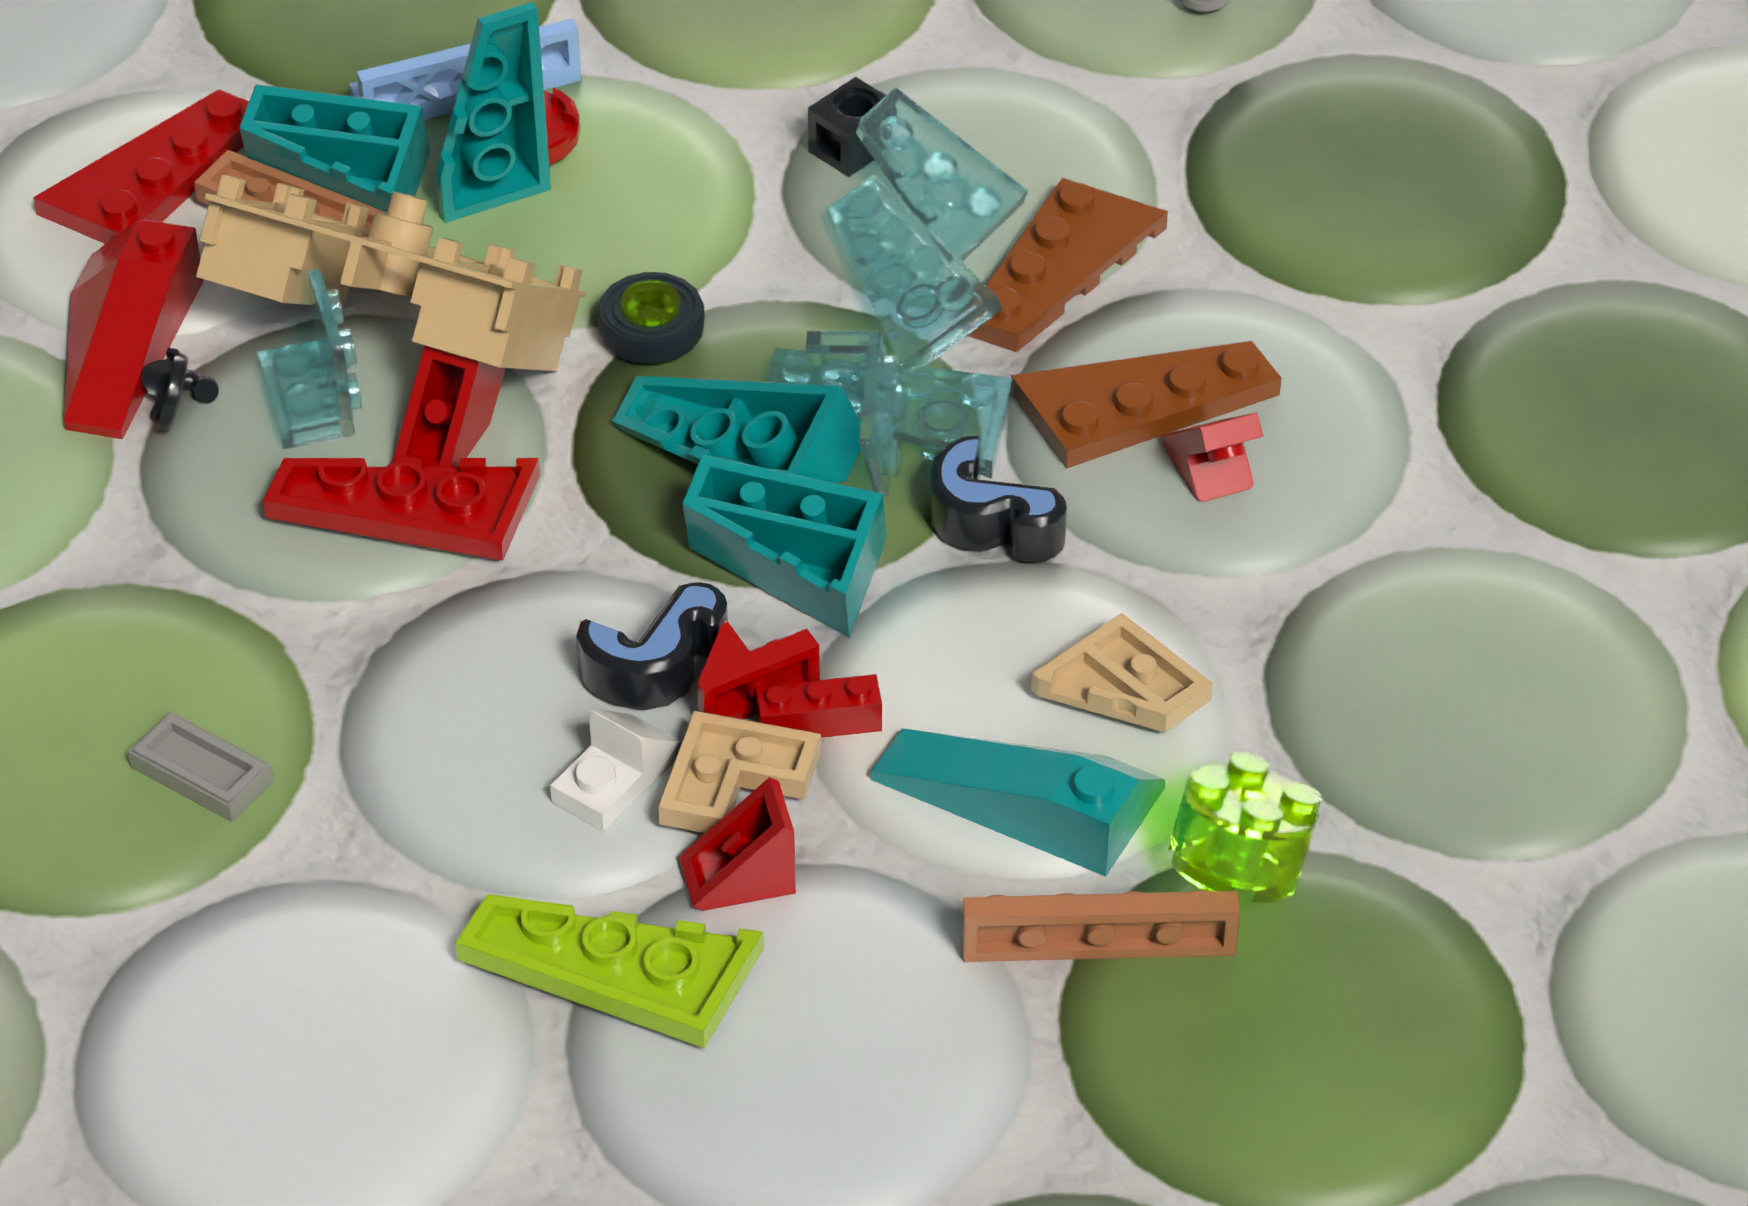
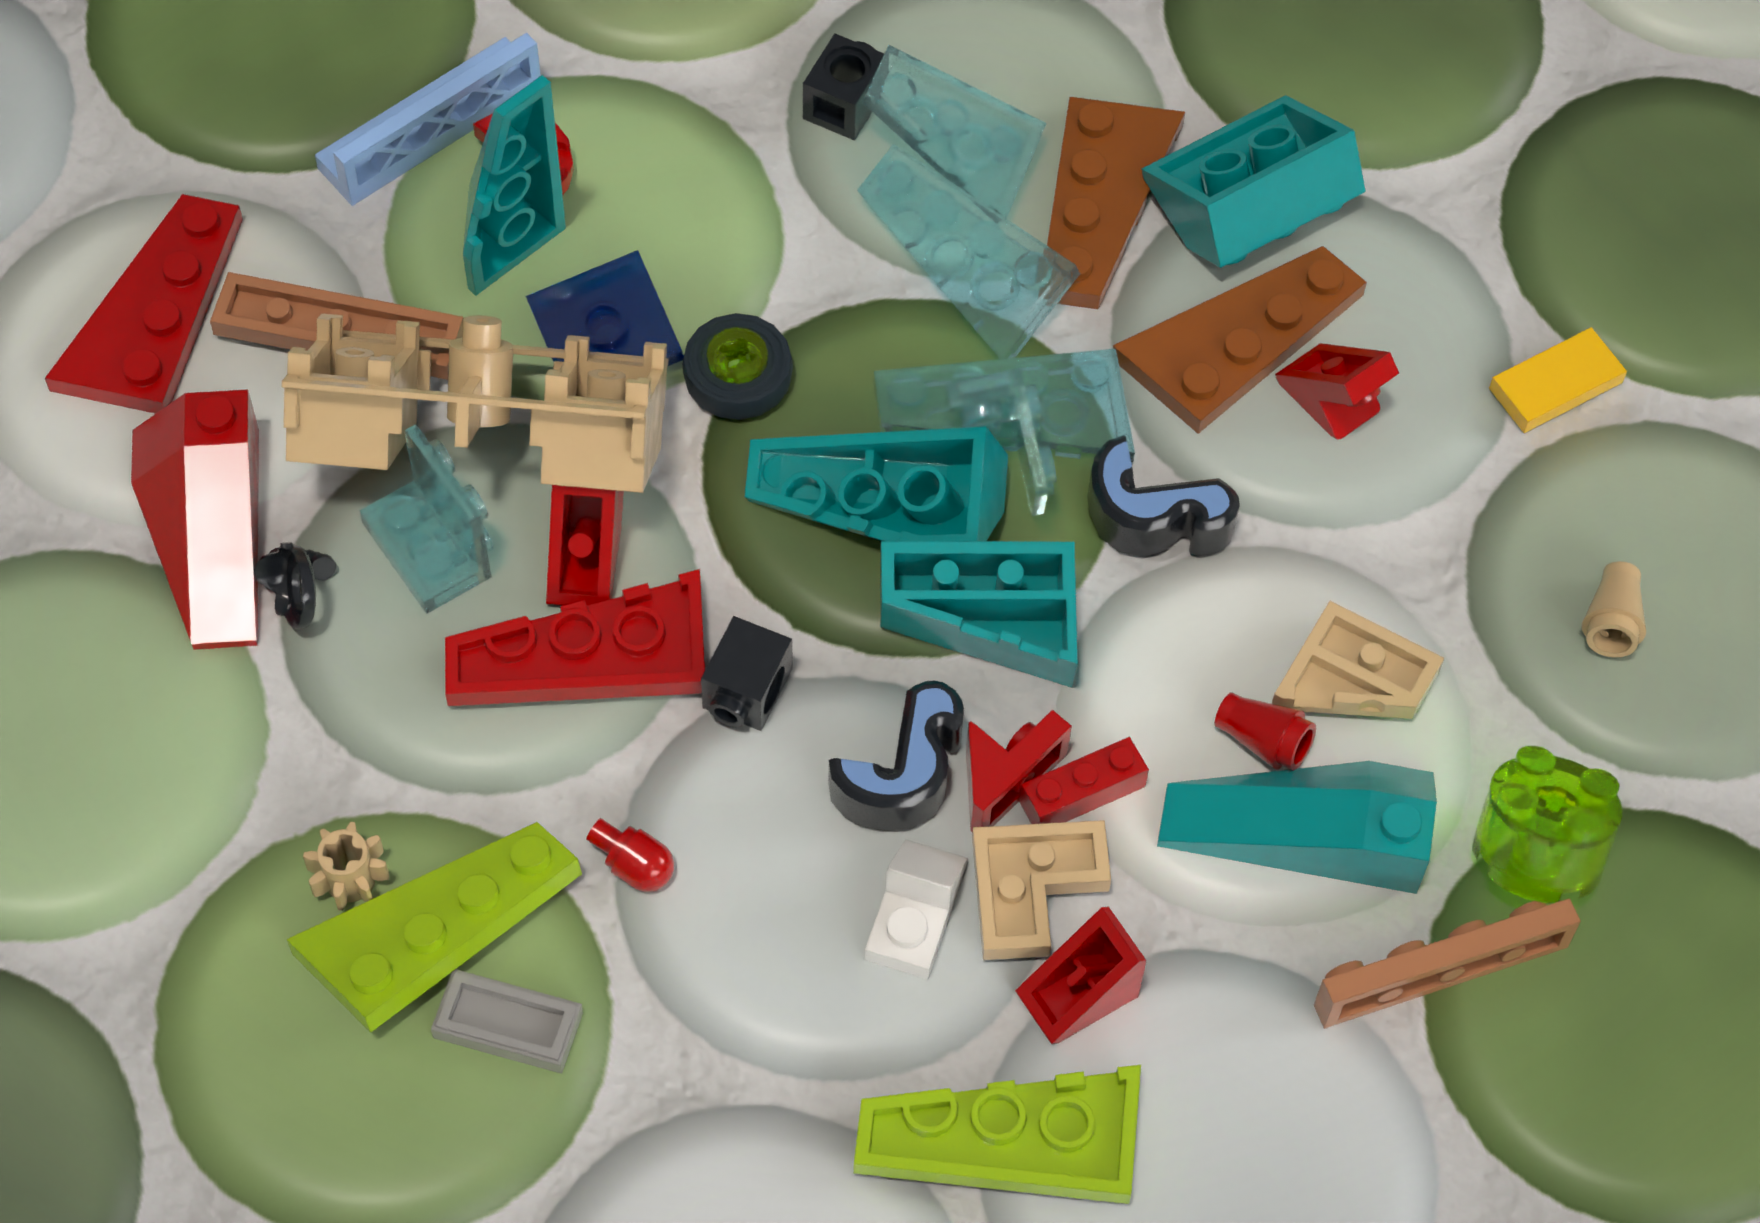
camera: 20 degrees left, 15 degrees up
(112, 609) = (332, 859): none -> tan gear
(159, 675) = (422, 931): none -> lime wing
(338, 141) = (346, 243): teal wedge -> none
(374, 665) = (633, 855): none -> red cylinder
(543, 548) = (746, 674): none -> black brick
(553, 239) = (608, 304): none -> clear blue plate
(1018, 706) = (1269, 730): none -> red cone
(1208, 275) = (1257, 179): none -> teal slope
(1403, 691) = (1616, 614): none -> tan cone
(1437, 497) = (1557, 380): none -> yellow tile

